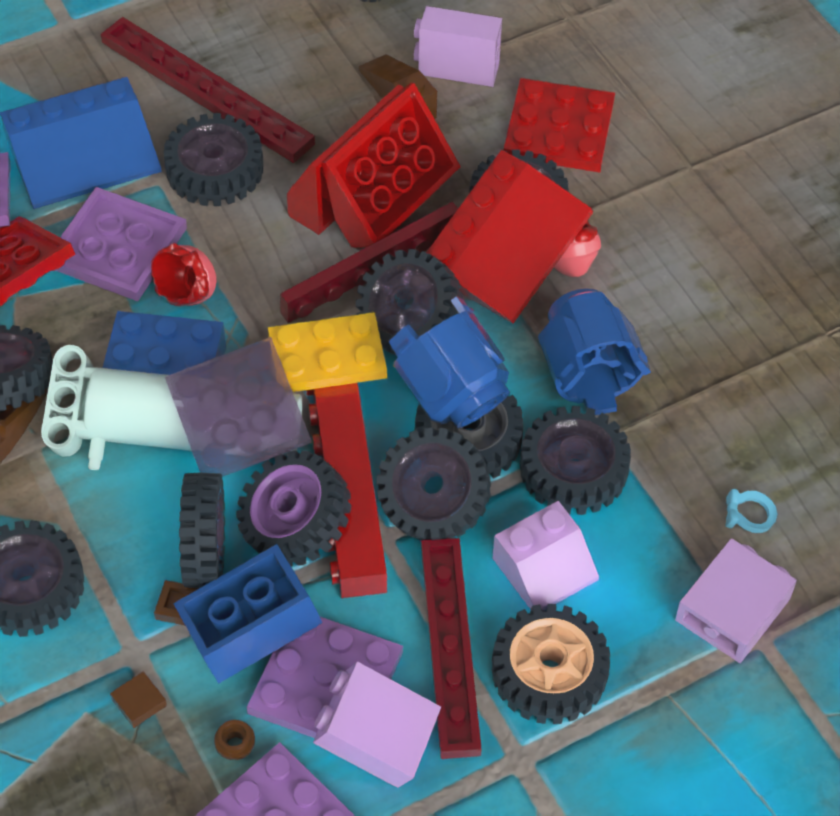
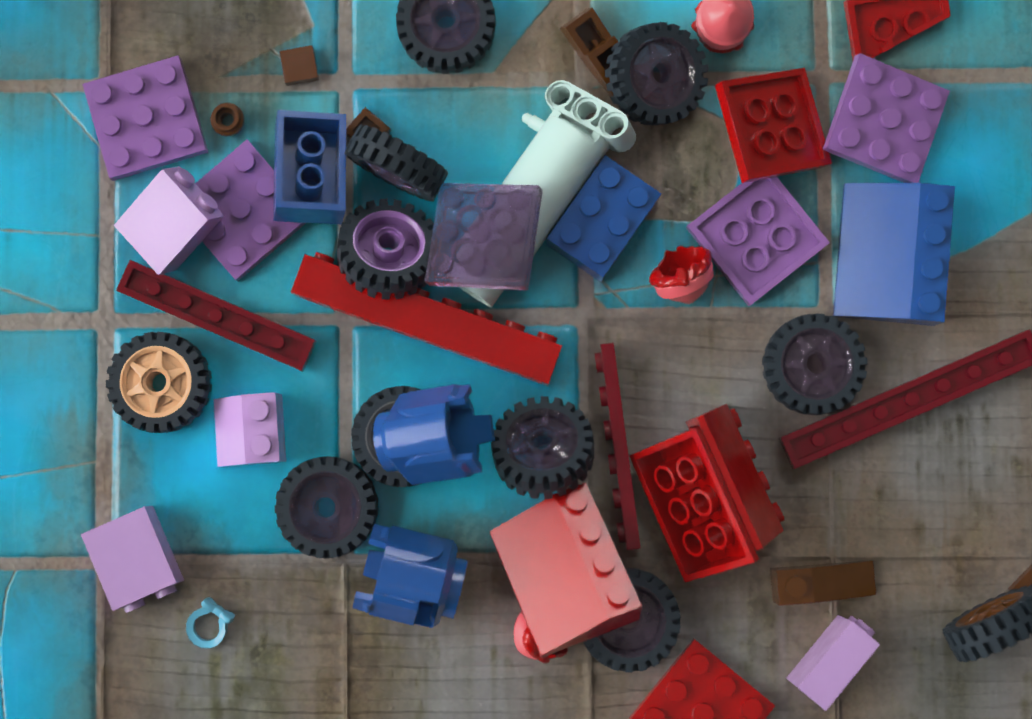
camera: 125 degrees right, 30 degrees up
(330, 351) = (524, 349): yellow plate -> none
(413, 464) = (367, 388): wheel -> none

